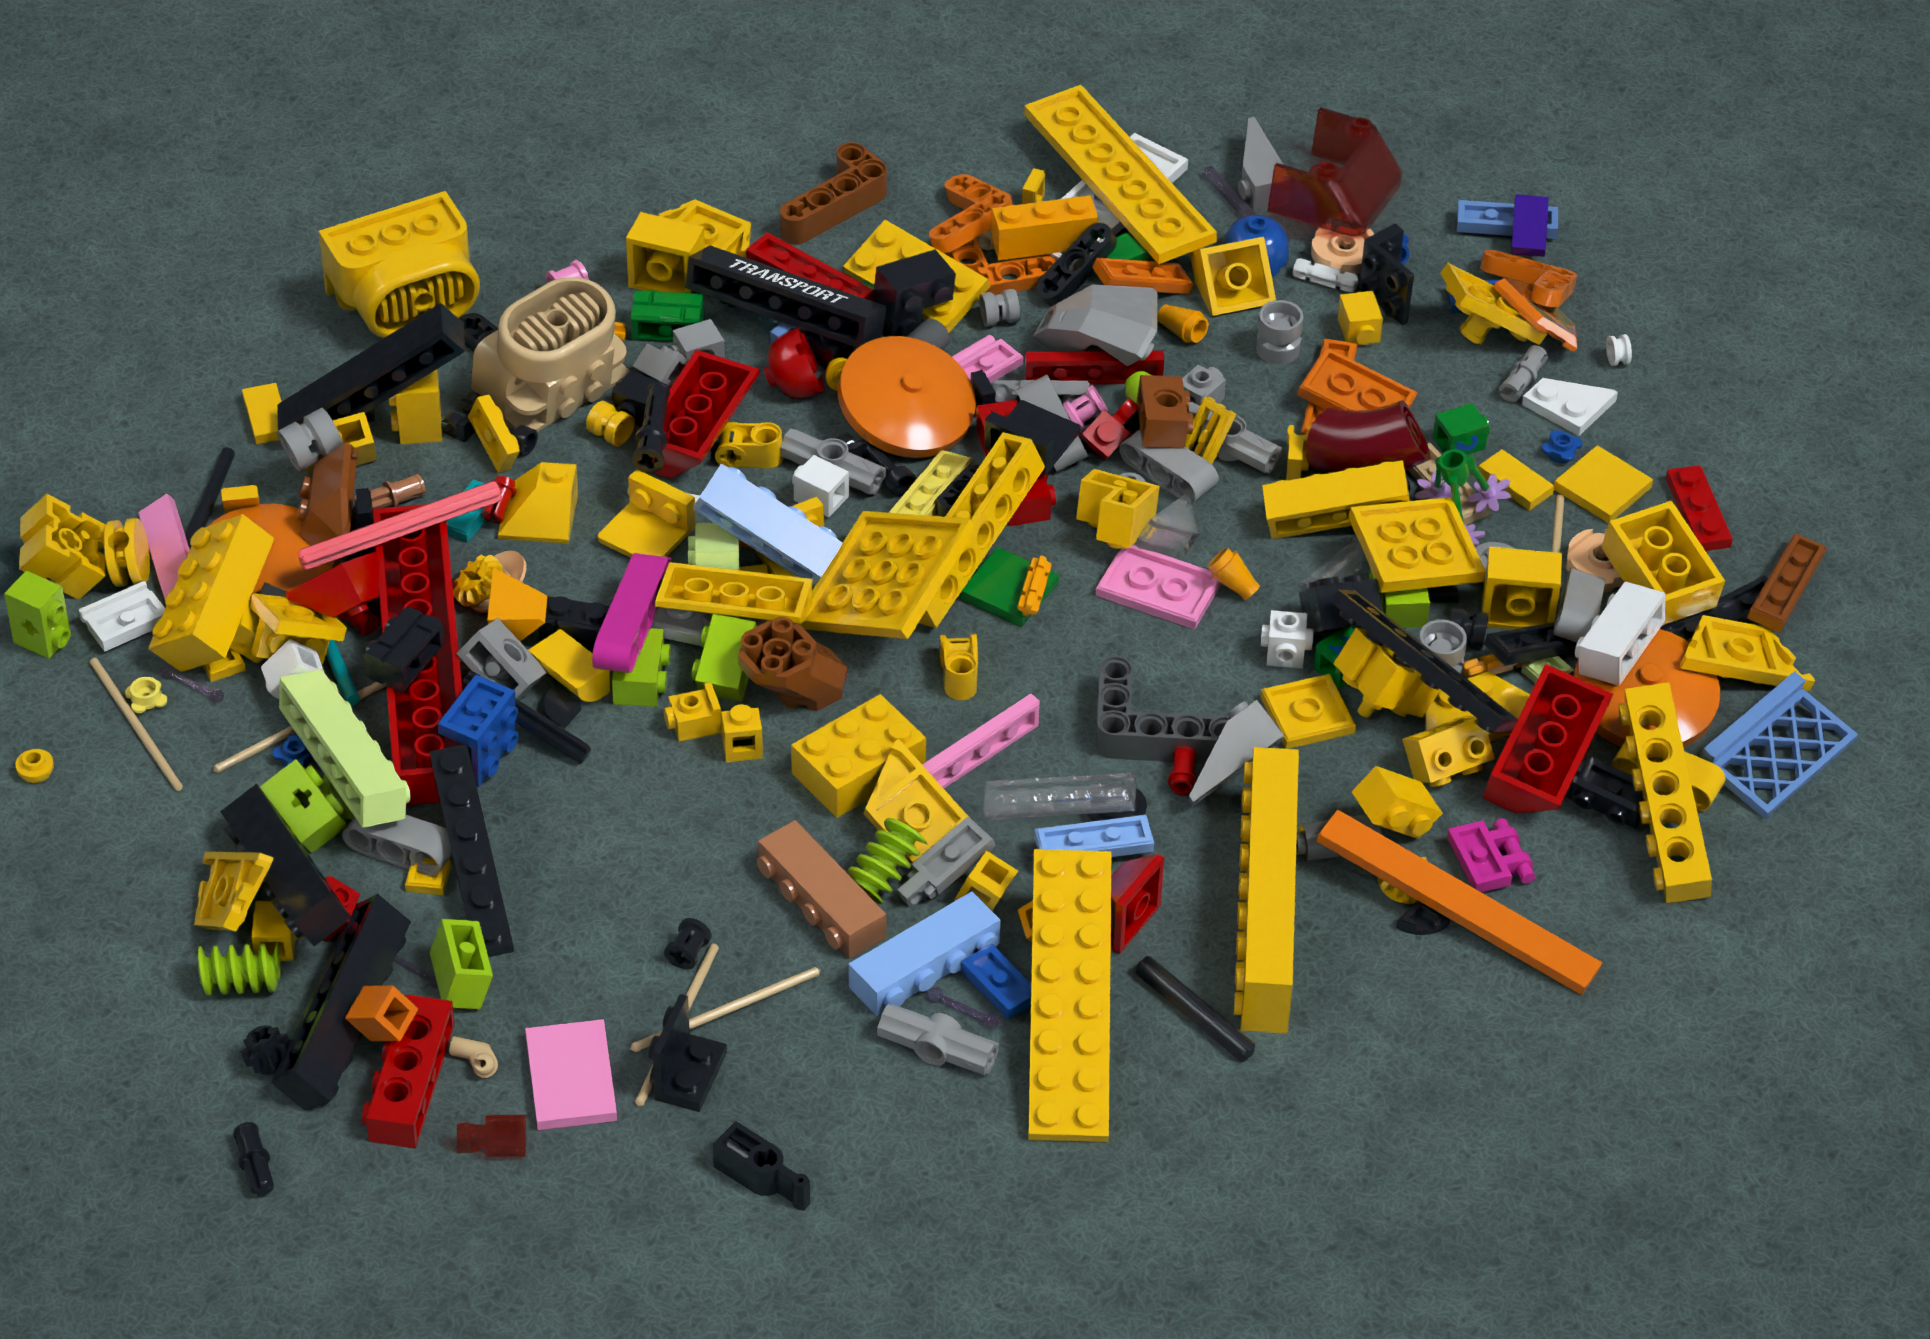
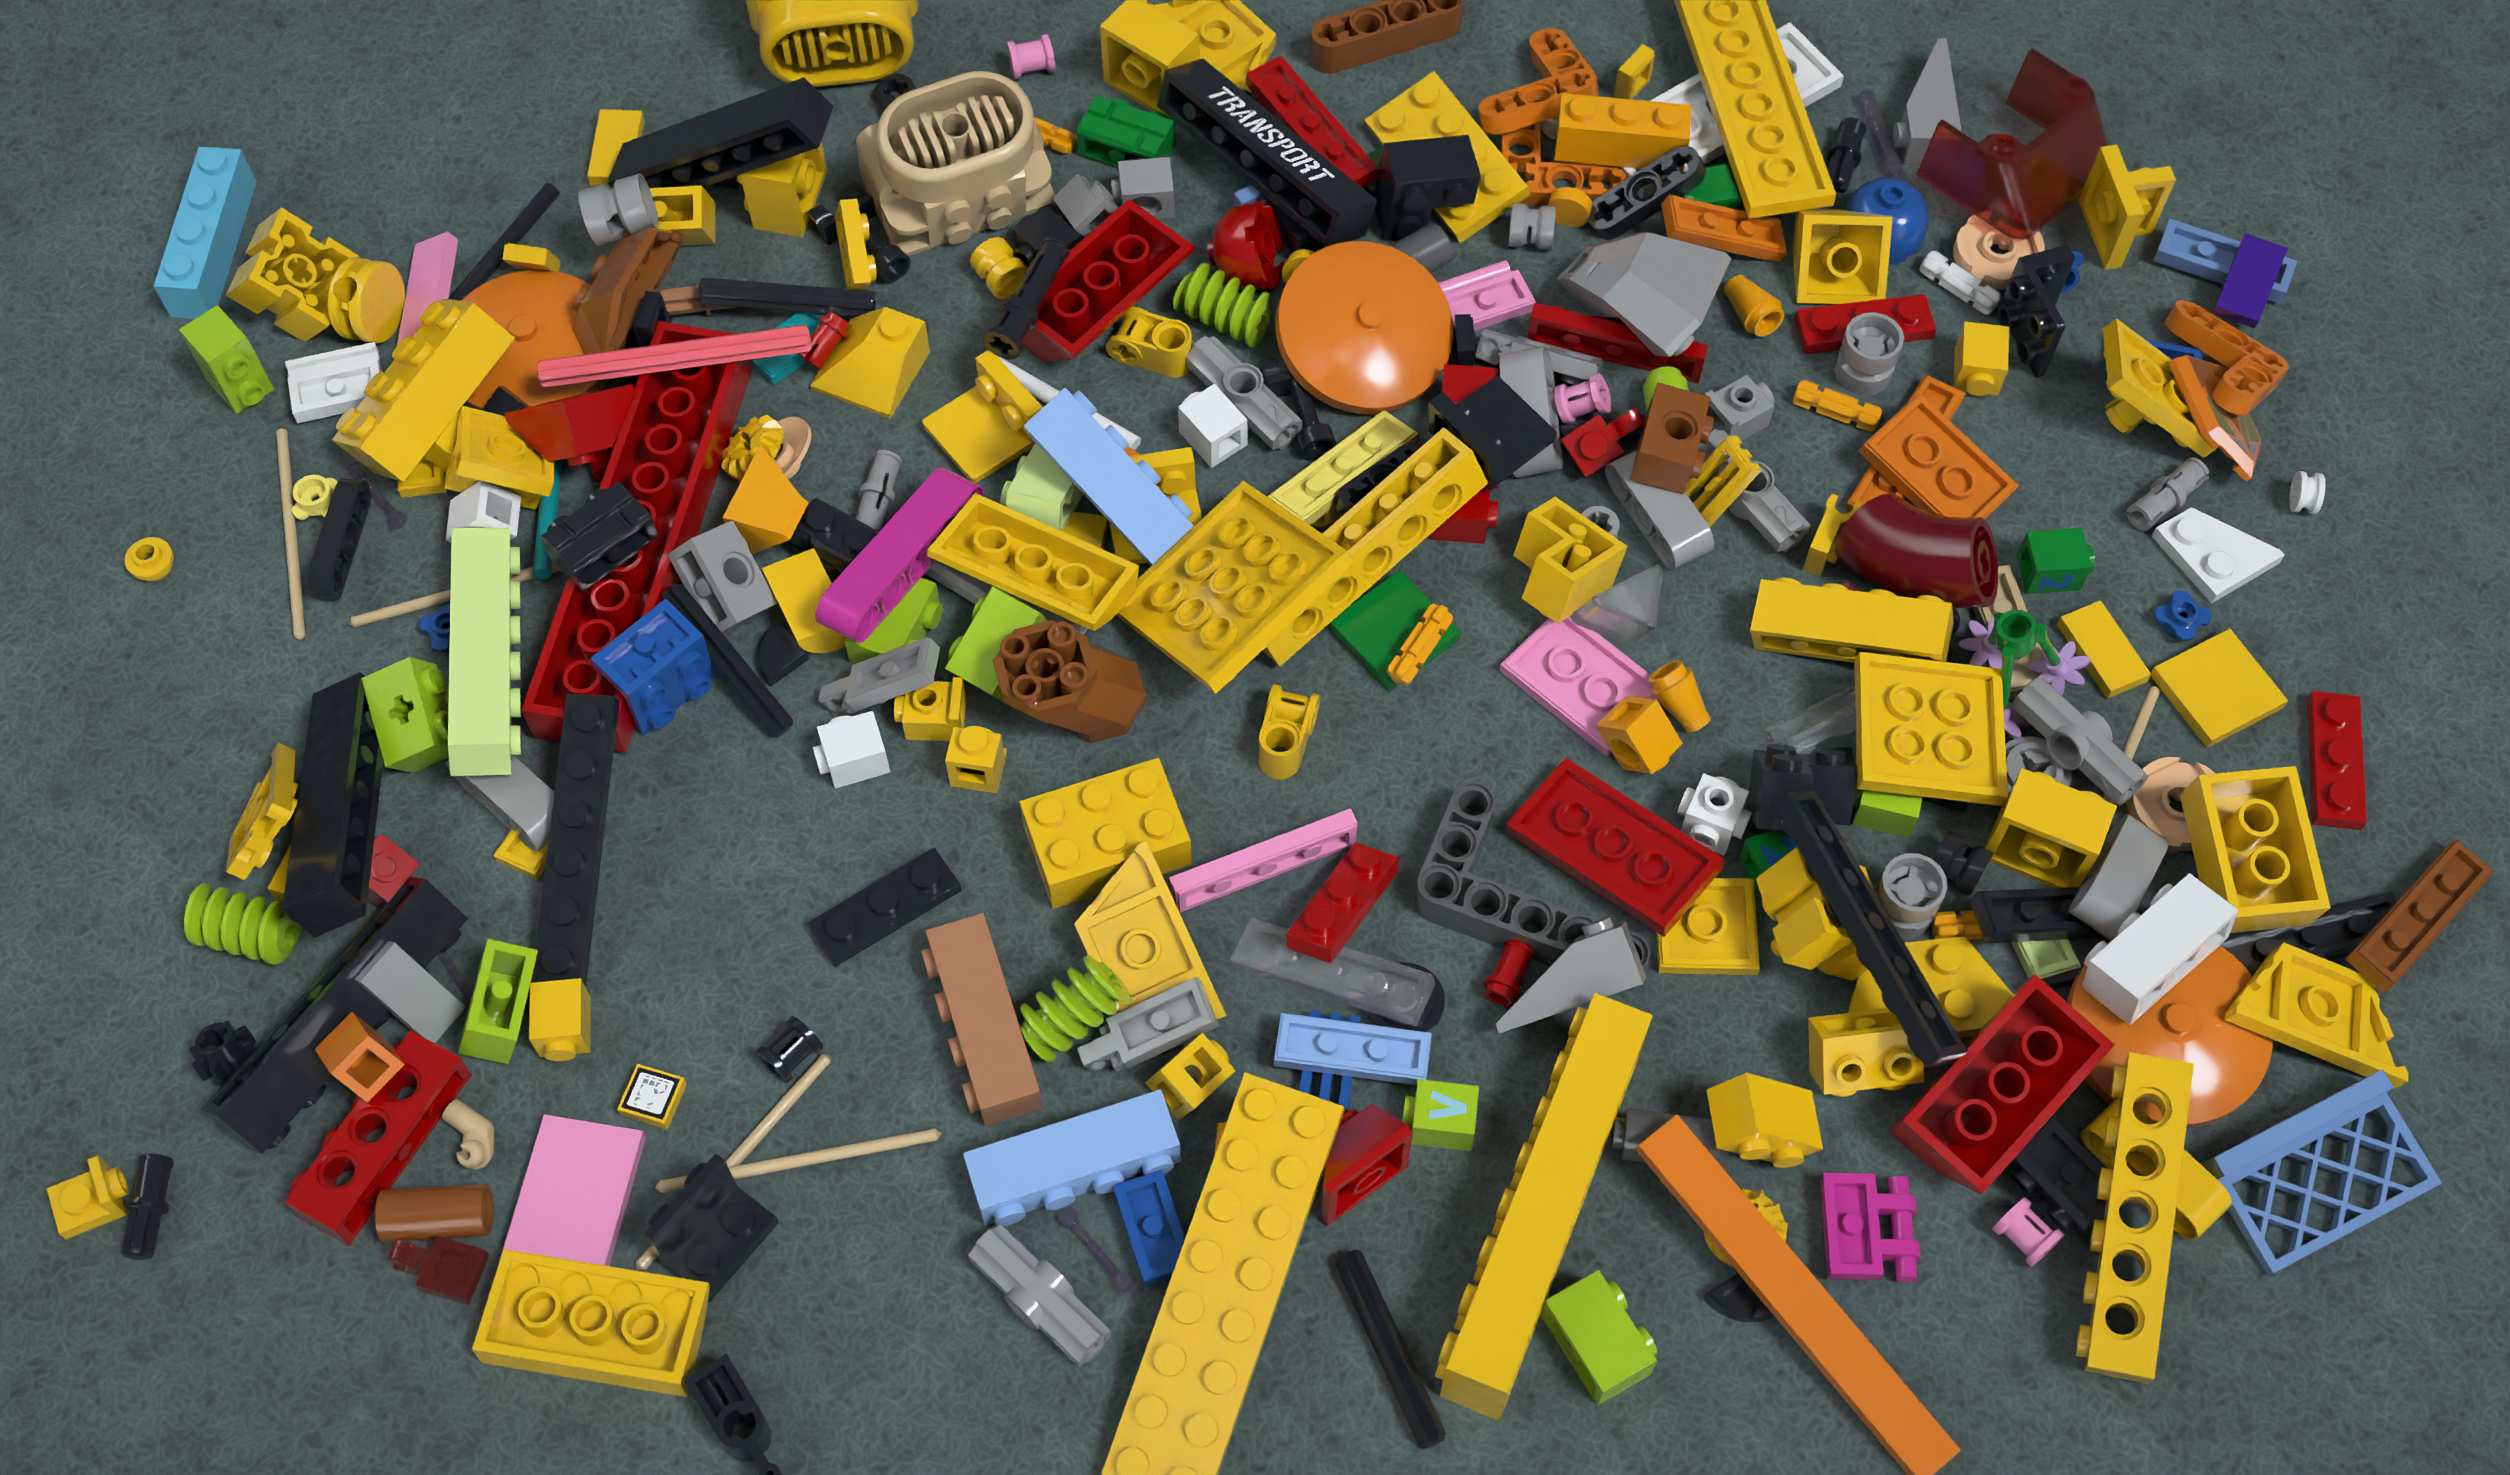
camera: 20 degrees right, 15 degrees up
(182, 715) = (338, 539): none -> black beam
(207, 1166) = (89, 1198): none -> yellow bracket
(386, 967) = (410, 992): none -> light grey tile
(454, 476) = (786, 297): none -> black axle
(474, 1102) = (434, 1212): none -> dark orange pin
(511, 966) = (560, 1019): none -> yellow brick
(584, 585) = (877, 492): none -> light grey pin
(598, 1000) = (652, 1096): none -> tile
(625, 1139) = (593, 1322): none -> yellow slope
(646, 751) = (851, 749): none -> white brick
(651, 697) = (882, 678): none -> light grey hinge
(714, 844) = (884, 907): none -> black plate
(793, 408) = (1224, 305): none -> lime piece
(1025, 286) = (1571, 206): none -> light orange tile
(1049, 753) = (1342, 902): none -> red plate
(1181, 861) = (1442, 1114): none -> lime brick
(1209, 206) = (1845, 153): none -> black axle
(1215, 603) = (1639, 734): none -> light orange brick
(1224, 673) = (1615, 846): none -> red plate
(1242, 324) = (1824, 326): none -> red plate
(1269, 373) = (1837, 405): none -> light orange axle
(1336, 961) = (1600, 1336): none -> lime brick
(1421, 195) = (2122, 203): none -> yellow bracket
(1519, 530) = (2079, 740): none -> light grey piece
(1598, 829) = (2028, 1232): none -> bright pink bush

